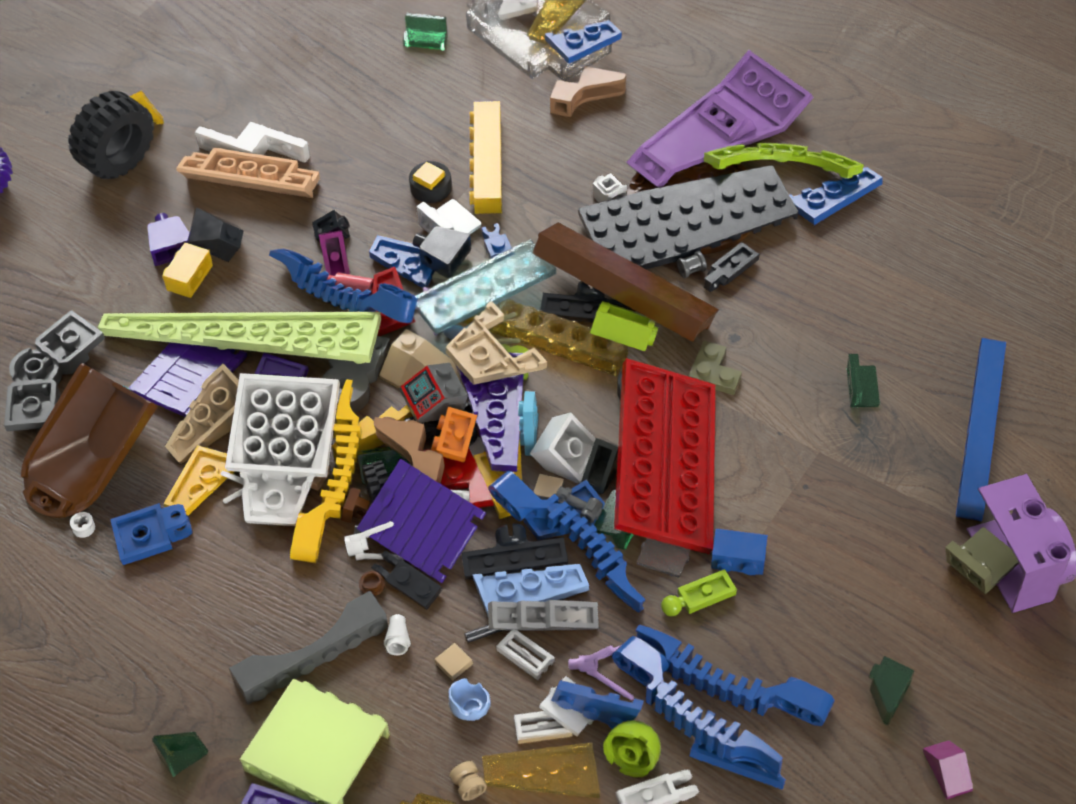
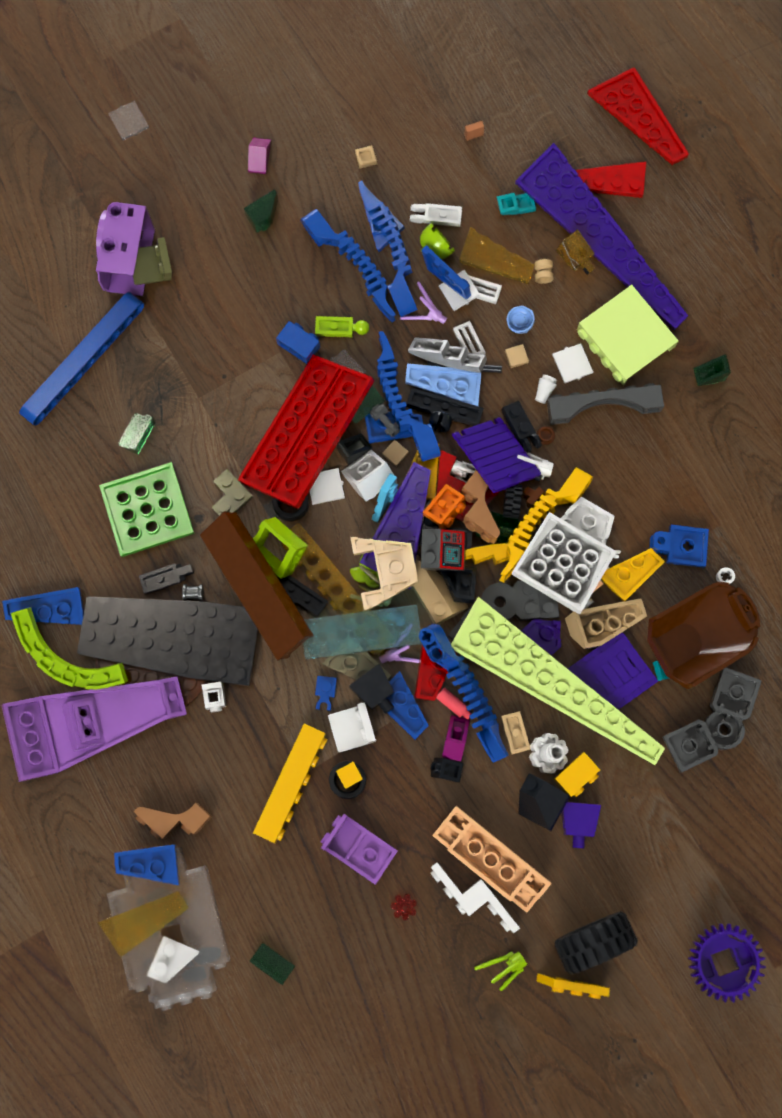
camera: 155 degrees left, 25 degrees up
(189, 114) = (515, 964): none -> lime plant
(226, 279) = (548, 753): none -> white plant
(271, 284) = (515, 732): none -> tan plate
(320, 116) = (398, 906): none -> clear red plant
(375, 687) = (572, 363): none -> white piece
(390, 378) = (461, 584): none -> black wing
(391, 136) = (358, 848): none -> medium lavender bracket
(605, 422) = (327, 487): none -> white piece
(796, 329) = (129, 485): none -> piece

